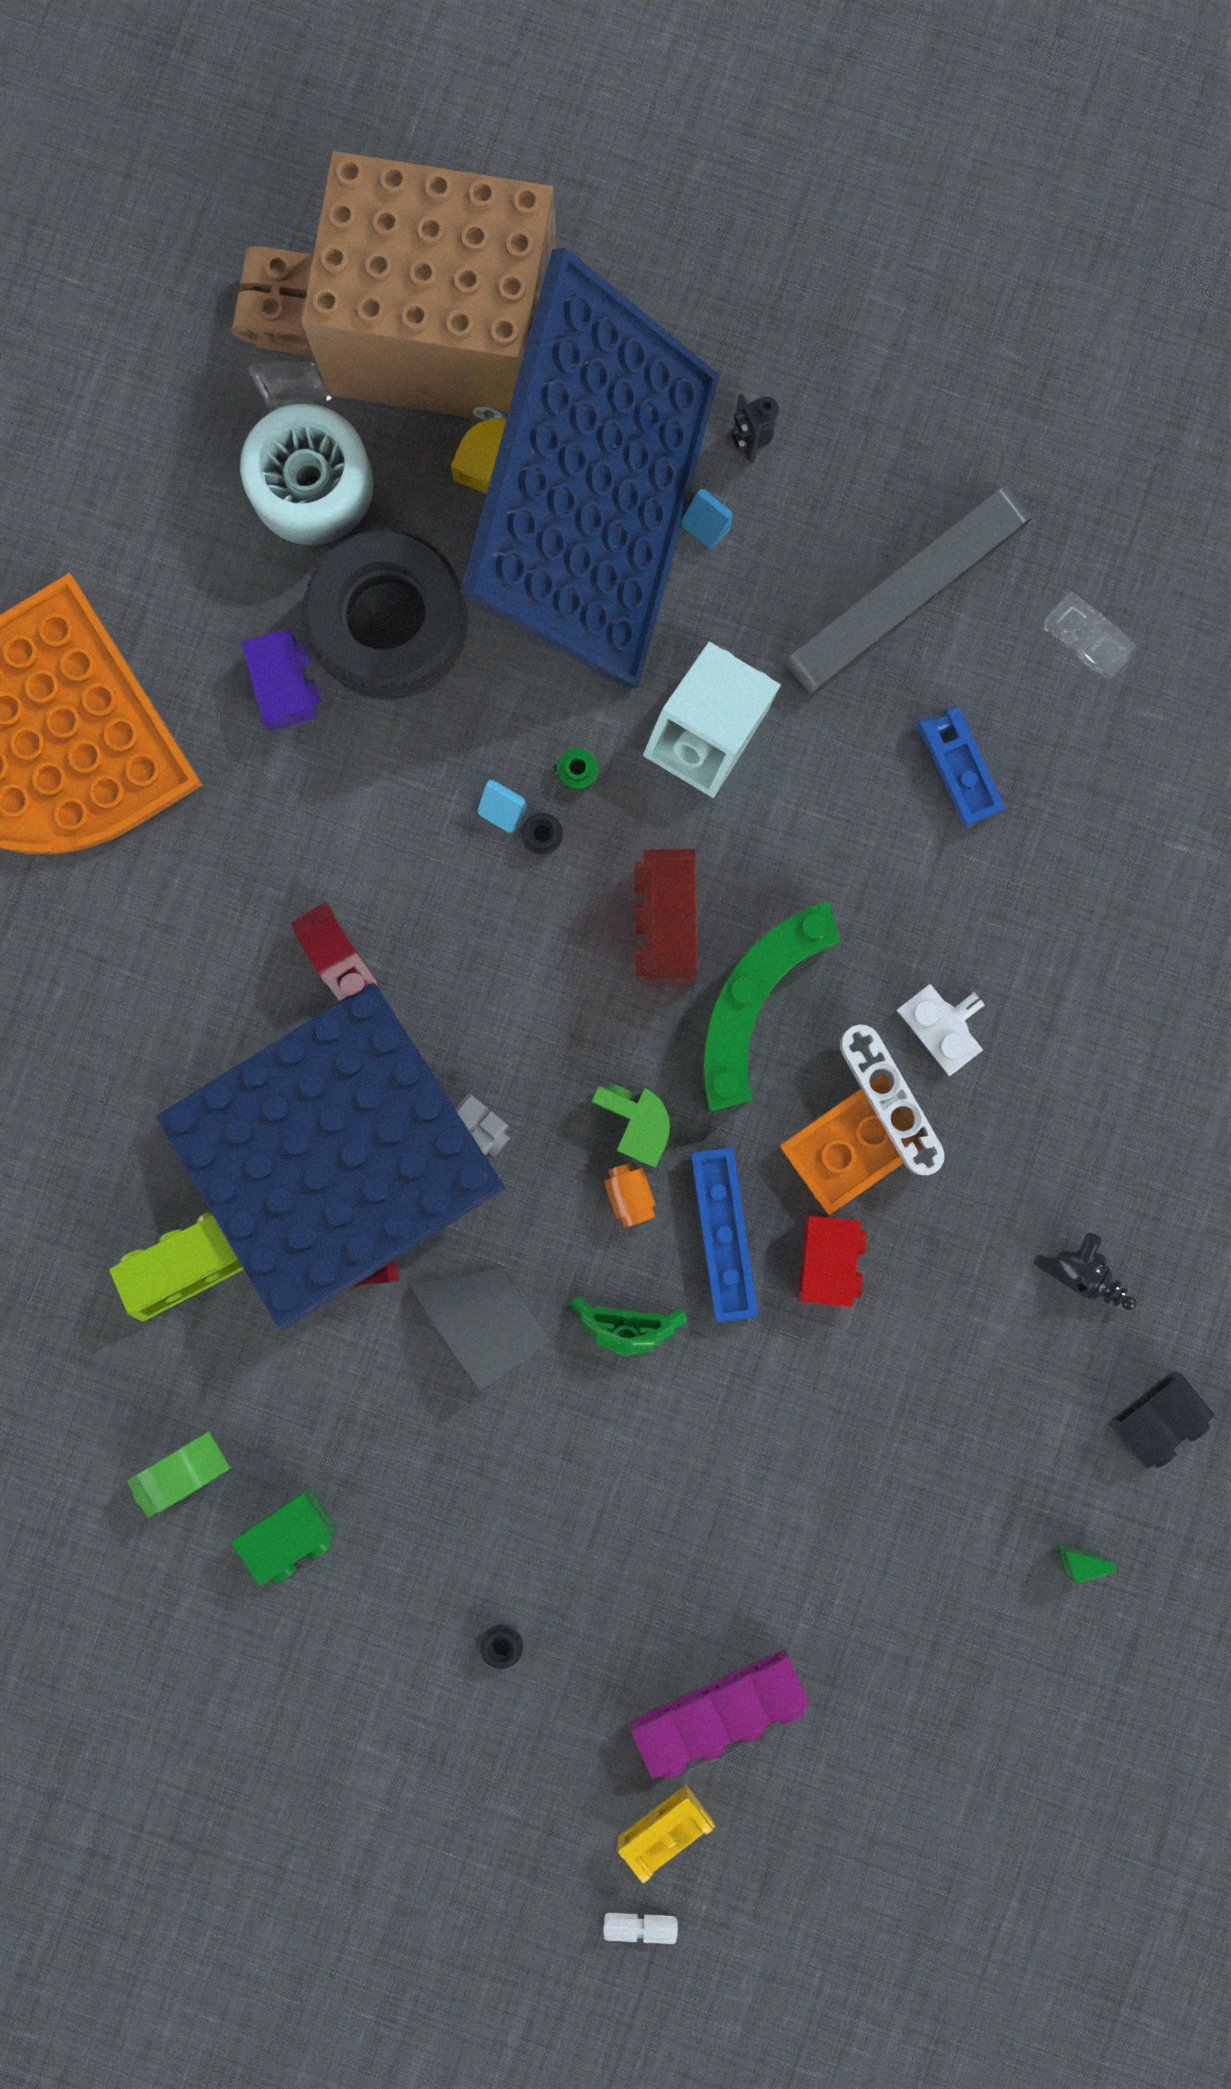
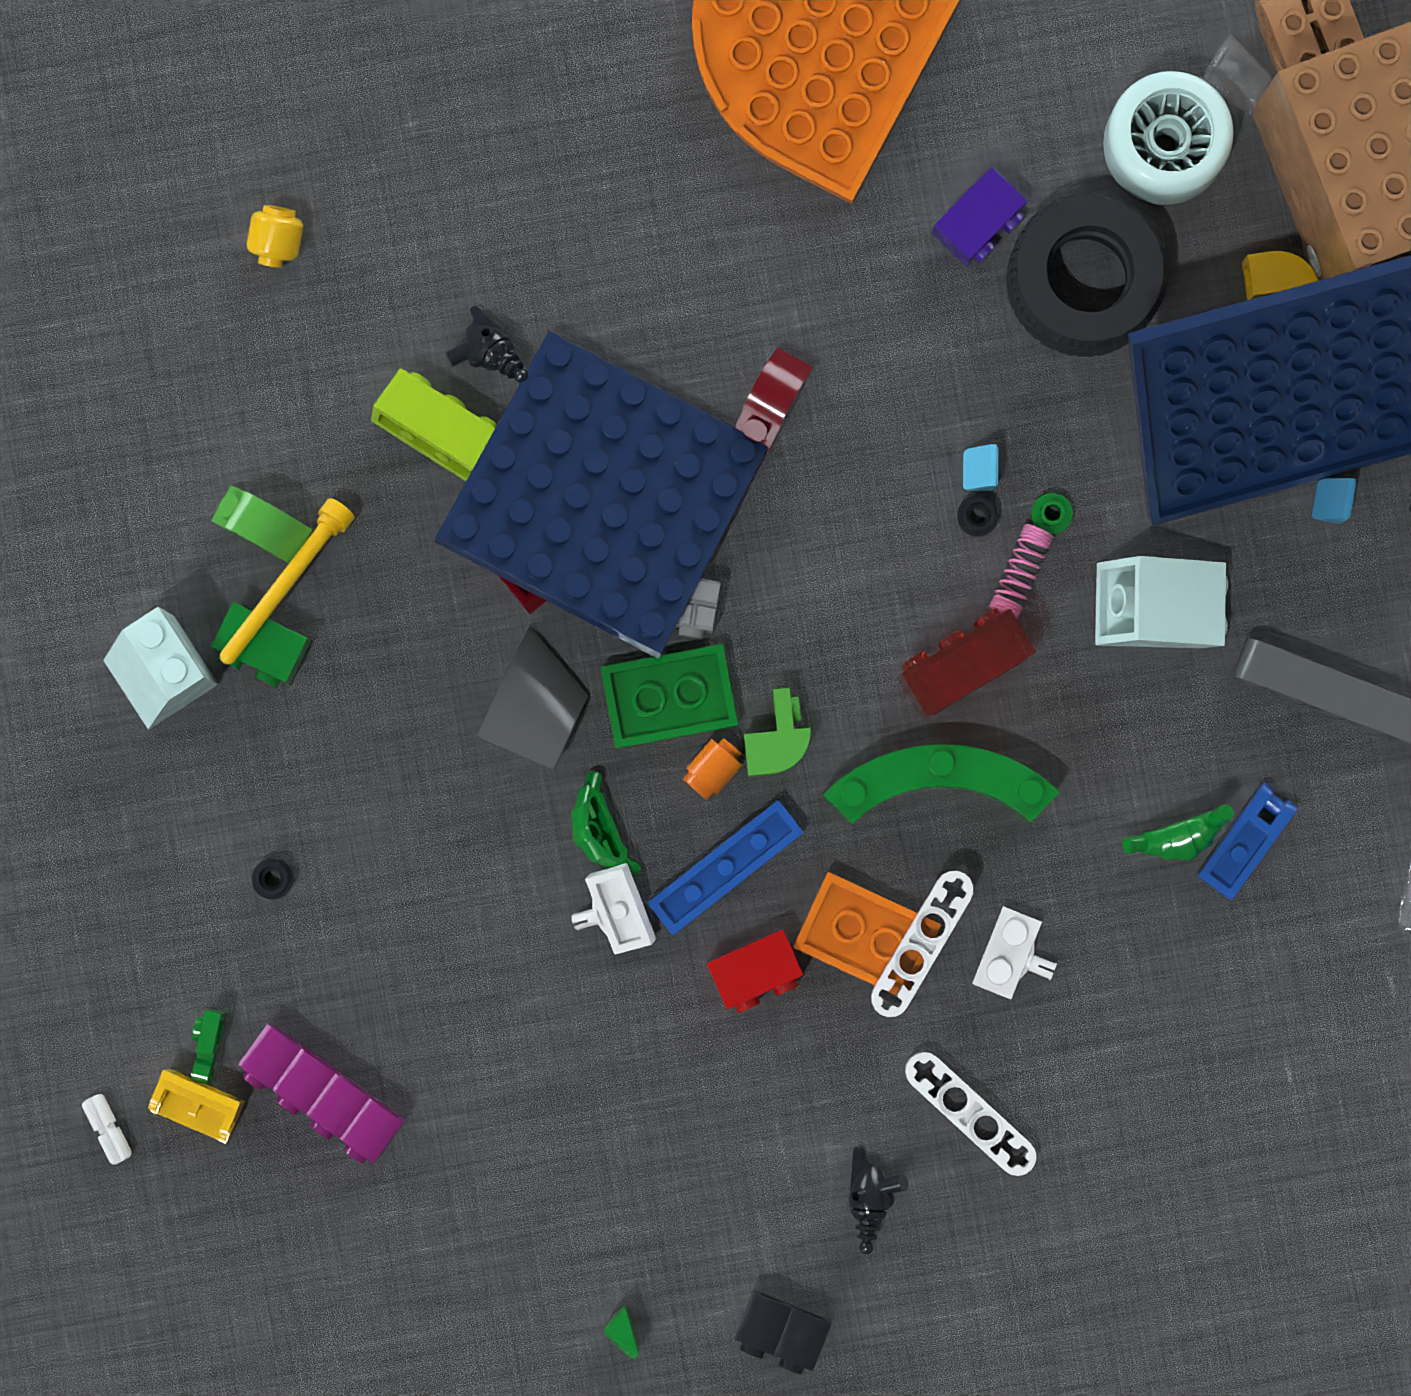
camera: 65 degrees right, 0 degrees up
(139, 1178) = (488, 347): none -> black piece
(211, 1408) = (332, 520): none -> yellow piece
(249, 1641) = (158, 667): none -> light aqua slope
(543, 1197) = (669, 696): none -> green plate
(590, 793) = (1029, 534): none -> bright pink piece
(610, 1788) = (208, 1034): none -> green plate
(707, 1353) = (616, 910): none -> white plate
(928, 820) = (1181, 839): none -> green piece
(1061, 1143) = (967, 1116): none -> white beam

